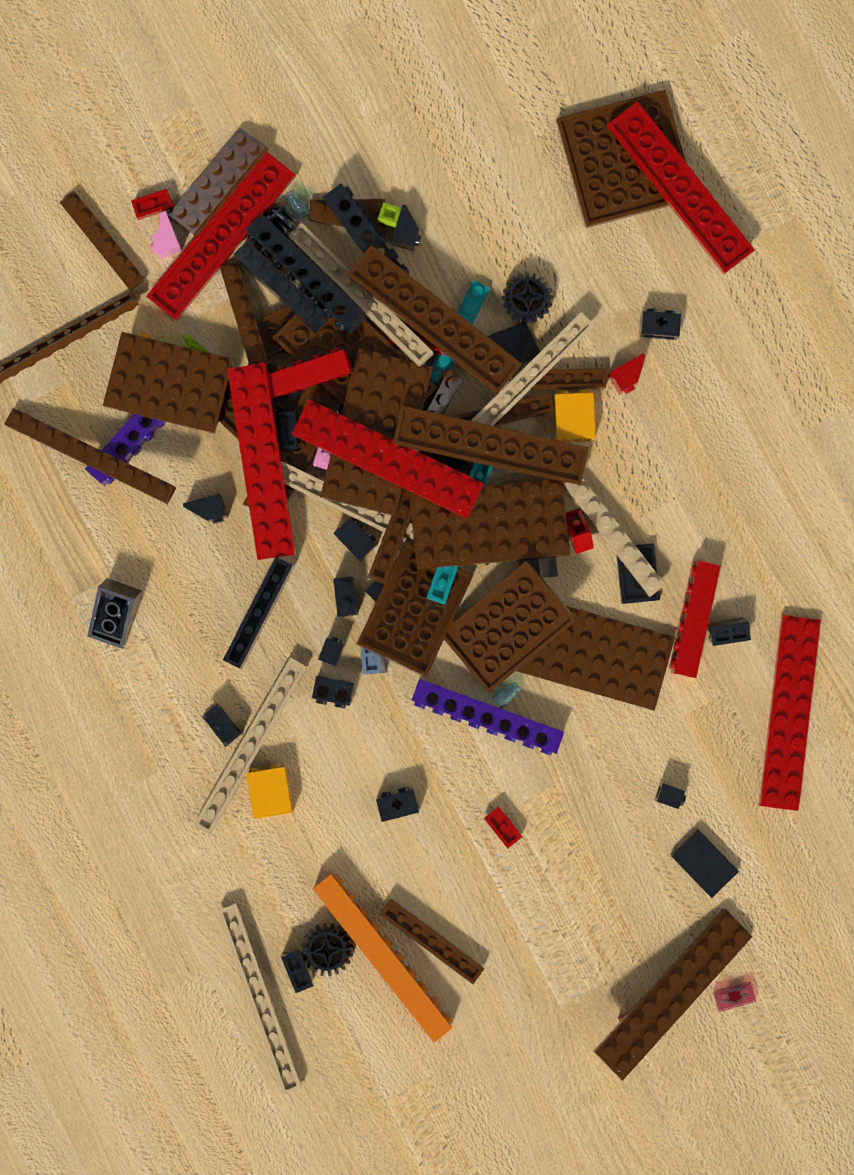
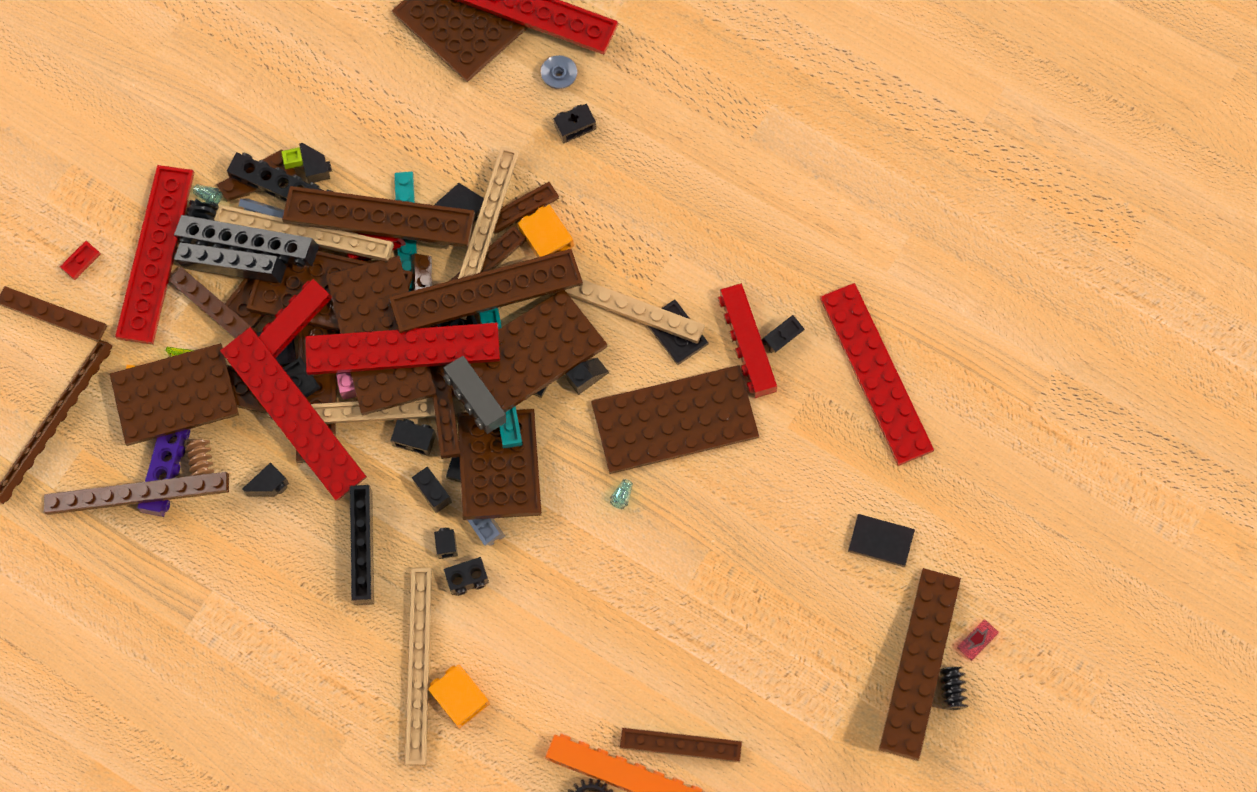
camera: 25 degrees left, 15 degrees down
(114, 612) = (231, 619): black slope -> none
(161, 453) = (198, 457): none -> medium nougat piece
(165, 240) = (108, 282): bright pink arch -> none
(218, 182) = (128, 212): reddish brown plate -> none
(222, 725) = (382, 662): black hinge -> none
(330, 240) = (251, 205): none -> sand blue plate
(390, 812) = (577, 652): black brick -> none
(426, 541) = (474, 395): none -> dark grey brick
(503, 827) = (685, 609): red plate -> none
(508, 626) = (589, 433): reddish brown plate -> none
(527, 282) = (438, 170): black gear -> none
(553, 735) = (643, 510): dark purple brick -> none
(578, 531) = (605, 324): red slope -> none
(627, 375) = (570, 176): red slope -> none
(670, 796) = (815, 498): black brick -> none
(679, 260) = (559, 65): none -> sand blue dish
(688, 1029) = (953, 688): none -> black piece

